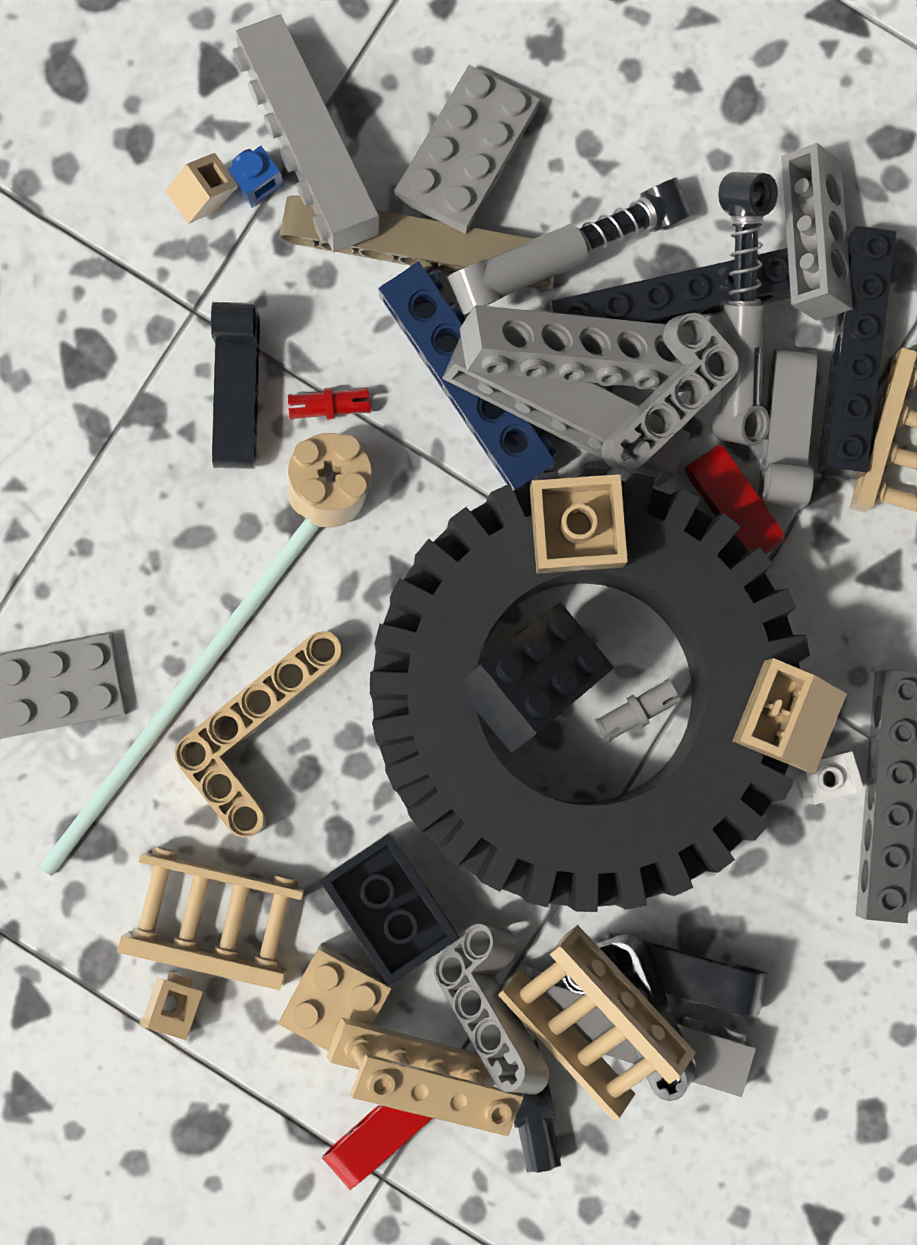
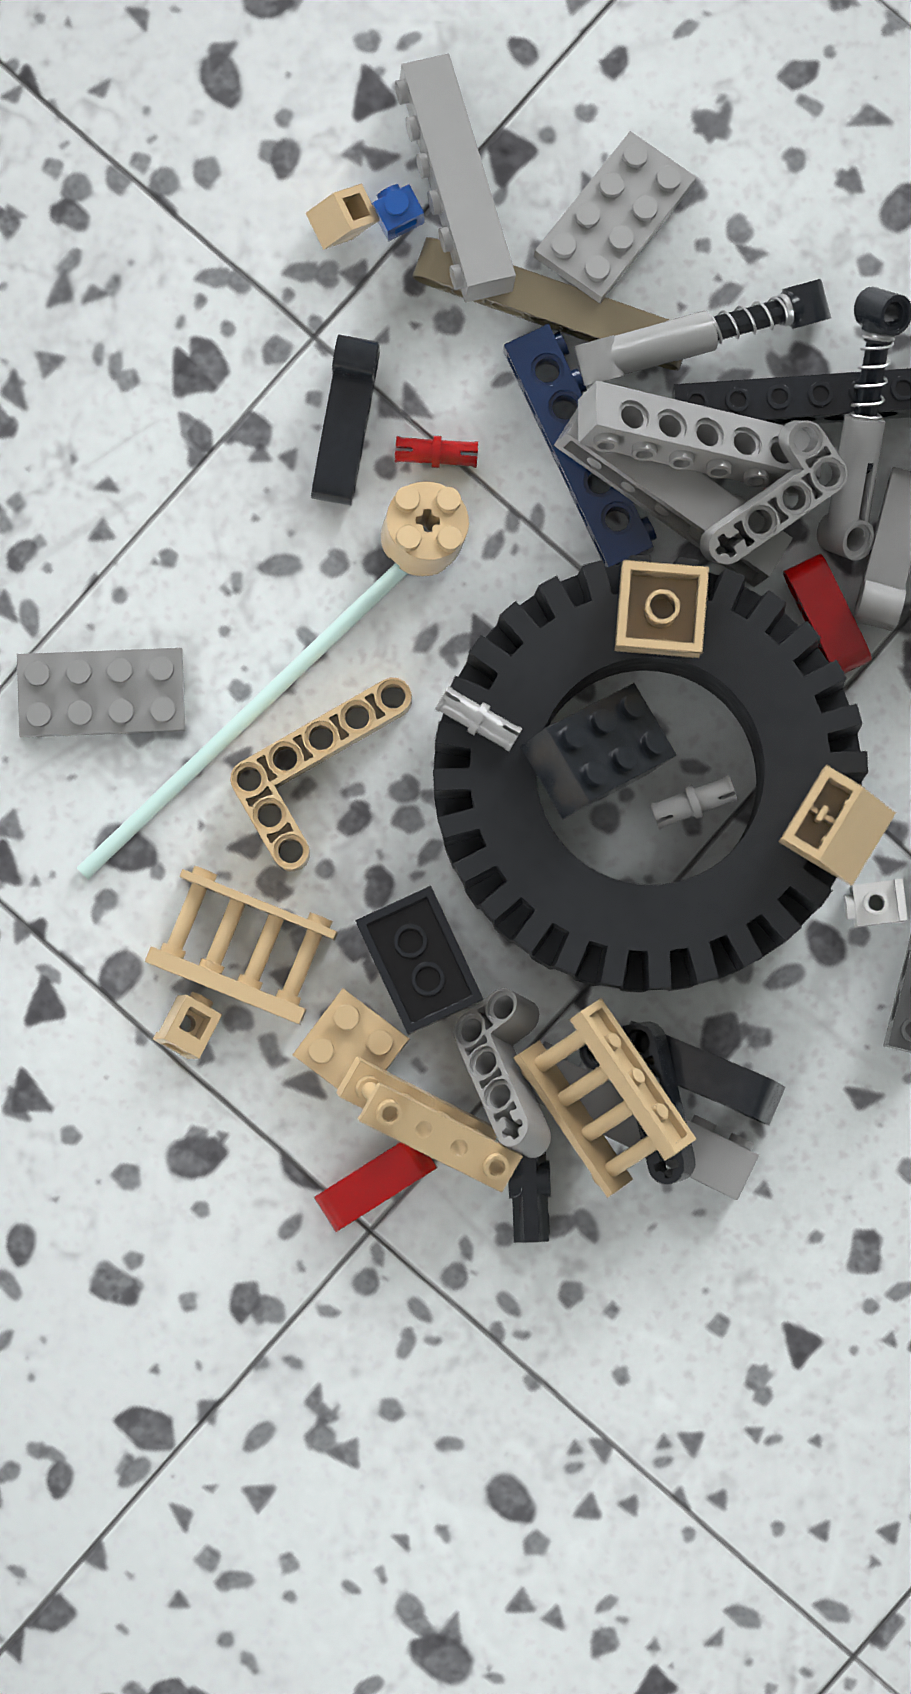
camera: 15 degrees right, 0 degrees up
(409, 664) = (478, 718): none -> light grey pin

